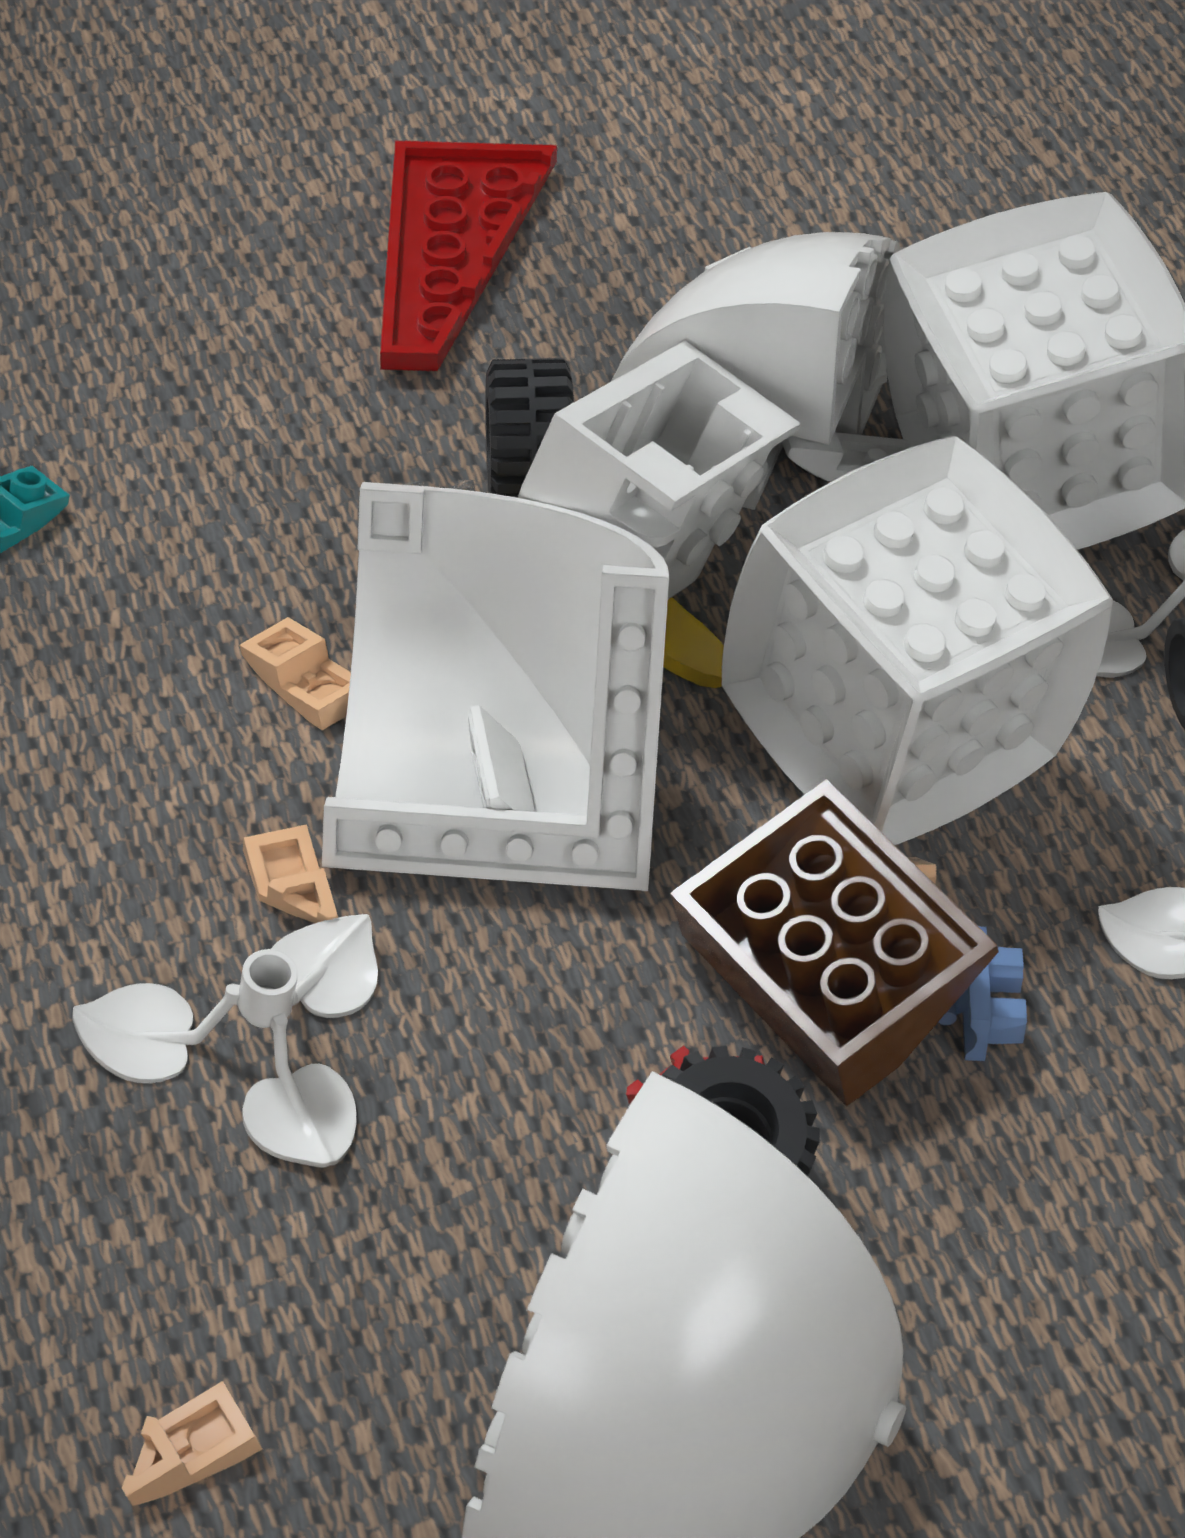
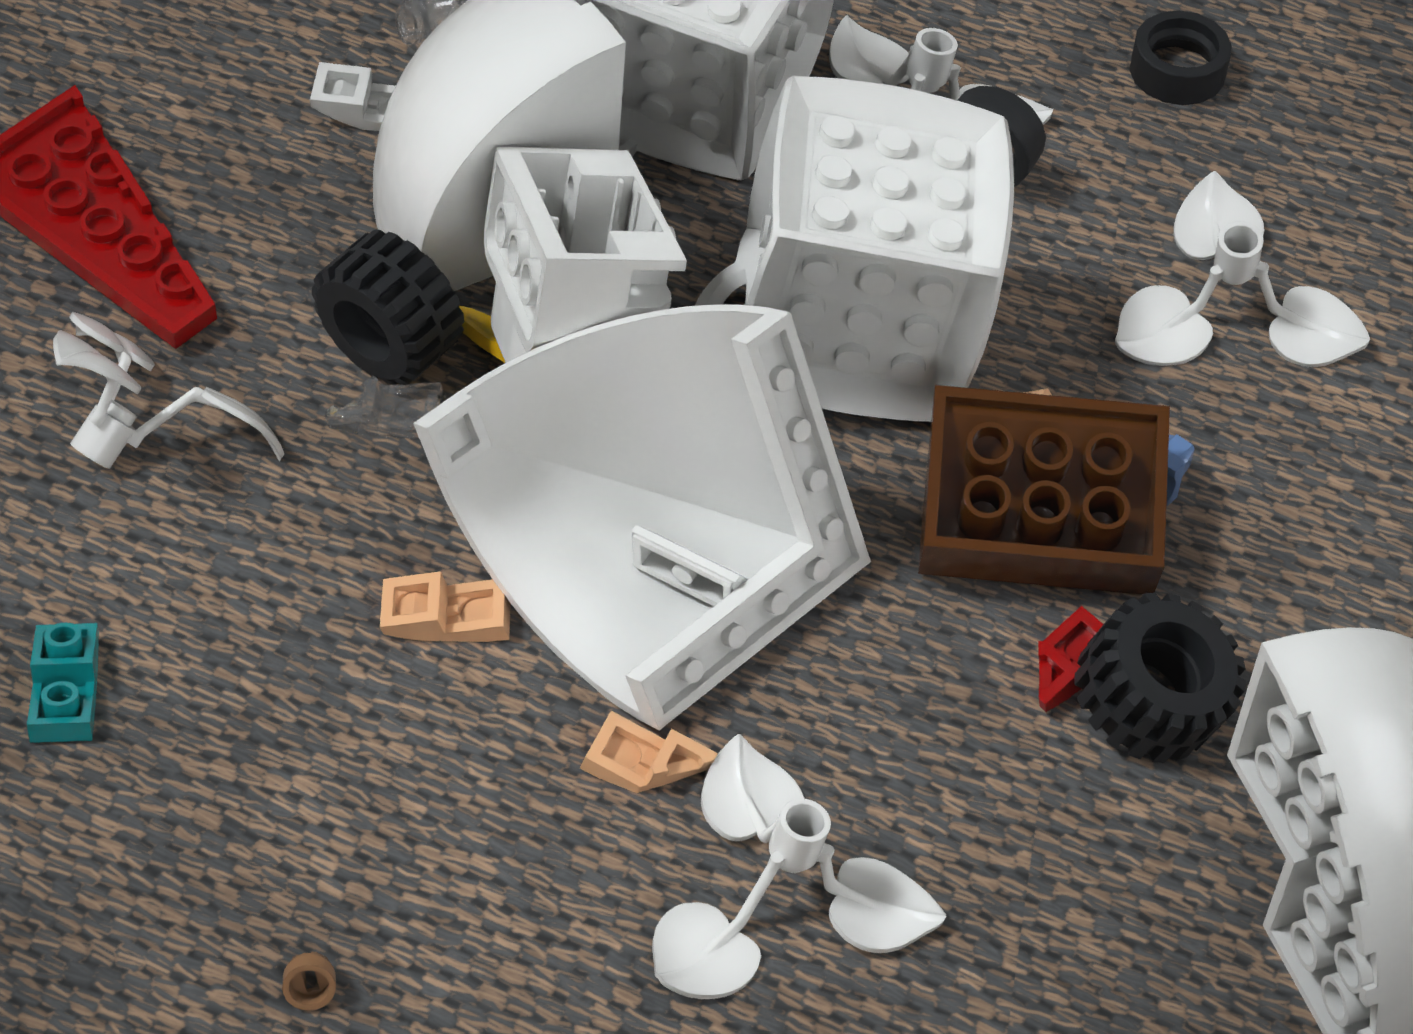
camera: 50 degrees left, 5 degrees up
(250, 375) = (109, 423): none -> white plant

